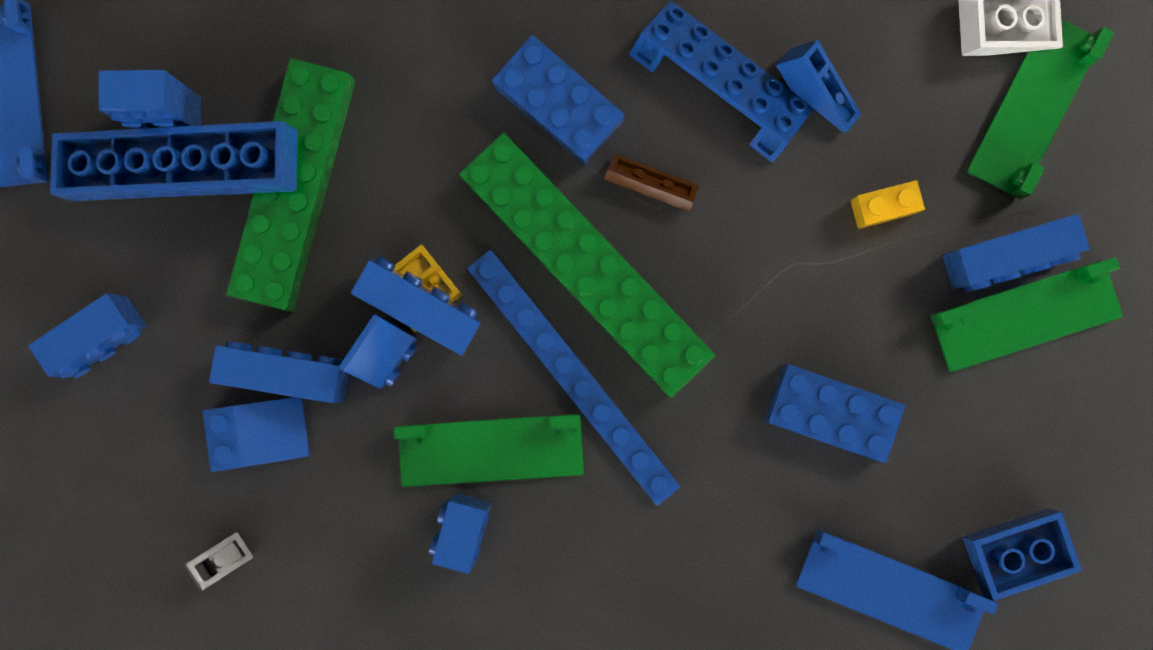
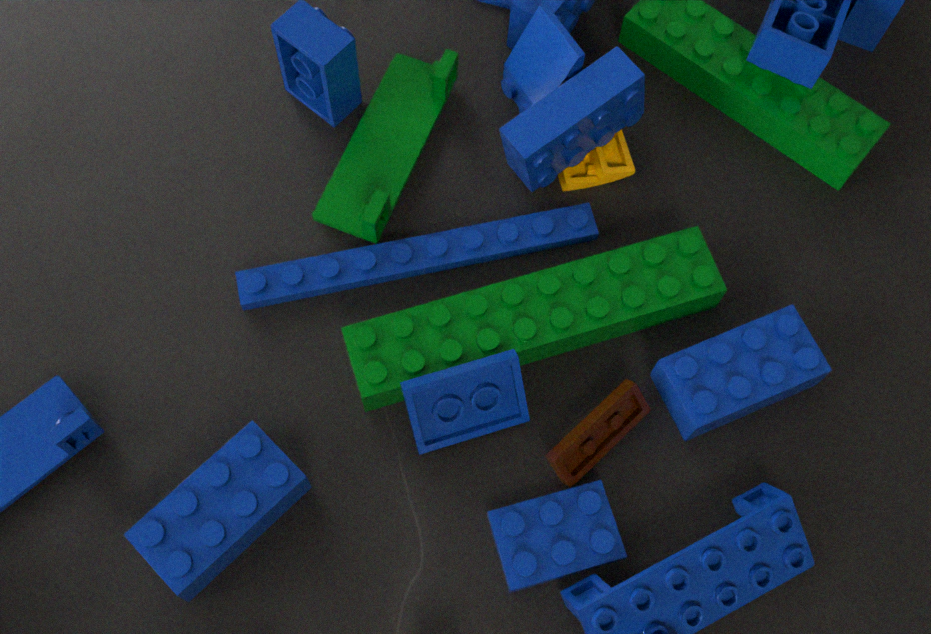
camera: 110 degrees right, 20 degrees down
(679, 283) = (465, 401): none -> blue plate
(736, 181) = (556, 536): none -> blue plate

